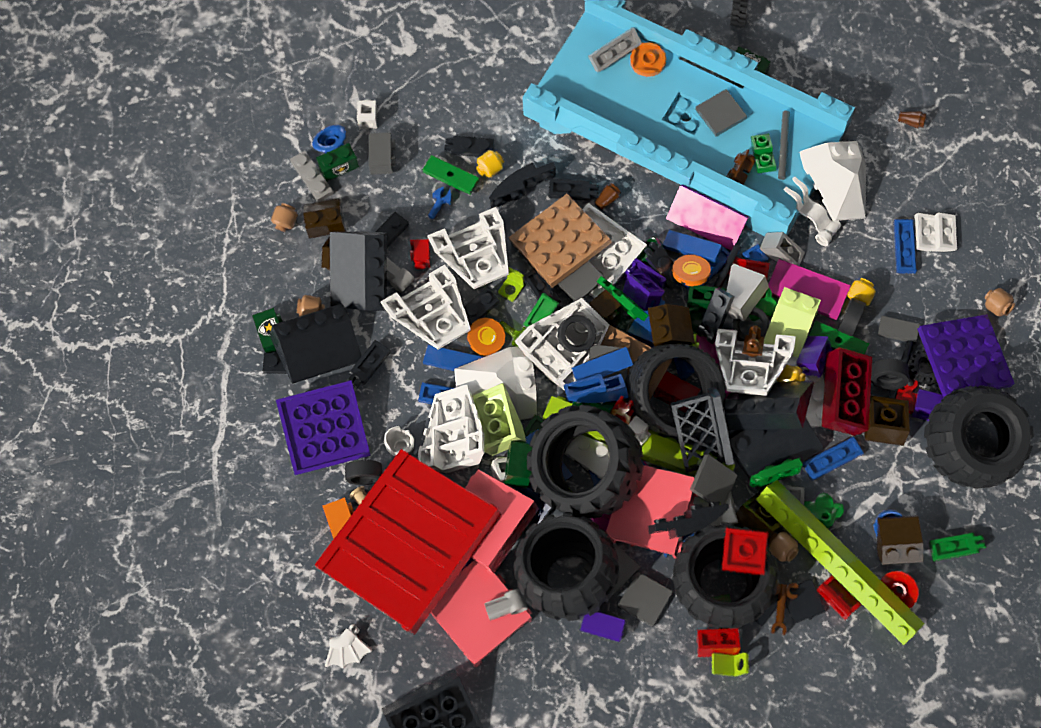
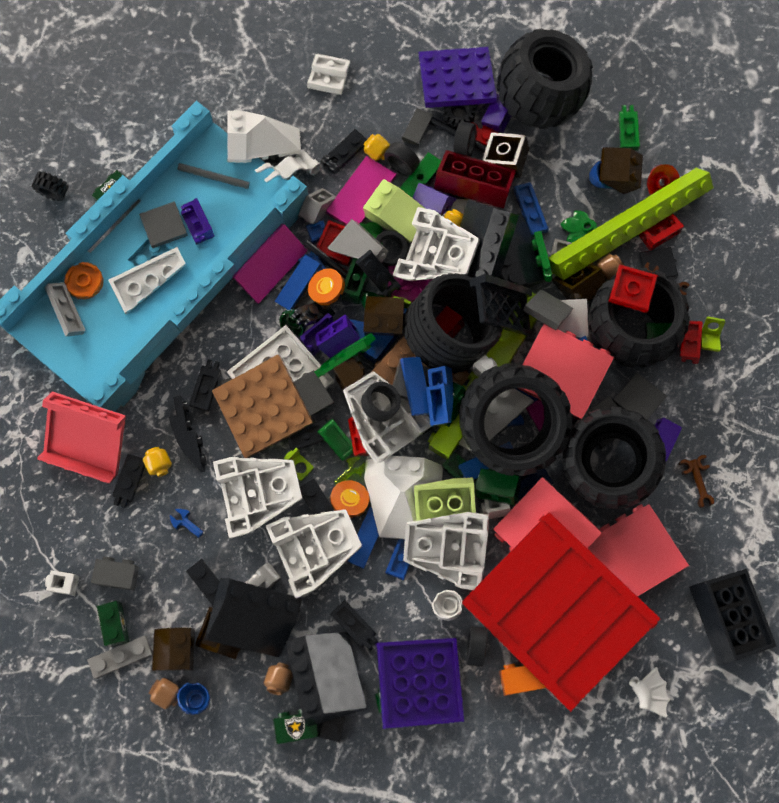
camera: 85 degrees left, 5 degrees up
(283, 240) = (193, 698): none -> blue hair
(329, 138) = (83, 628): blue hat -> none
(358, 494) = (499, 654): tan bush -> none
(420, 253) = (242, 551): red brick -> none
(442, 170) = (149, 515): green tile -> none
(496, 95) = (82, 437): none -> coral panel
(511, 603) = (638, 517): light grey piece -> none
(583, 664) = (695, 466): none -> reddish brown bar
(607, 196) = (222, 353): reddish brown cone -> none
(623, 410) = (464, 376): red plate -> none
(659, 108) = (143, 280): none -> white wing
(692, 520) = (590, 333): black slope -> none
(731, 141) = (196, 221): none -> dark purple hinge
(742, 162) = (224, 216): reddish brown hinge -> none
(753, 342) = (415, 246): reddish brown hinge -> none
(763, 153) = (215, 196): green slope -> none
(849, 263) = (344, 151): none -> black plate
(904, 246) = (336, 102): blue tile -> none
(913, 118) = (210, 63): reddish brown cone -> none
(999, 302) = (410, 38): medium nougat head -> none

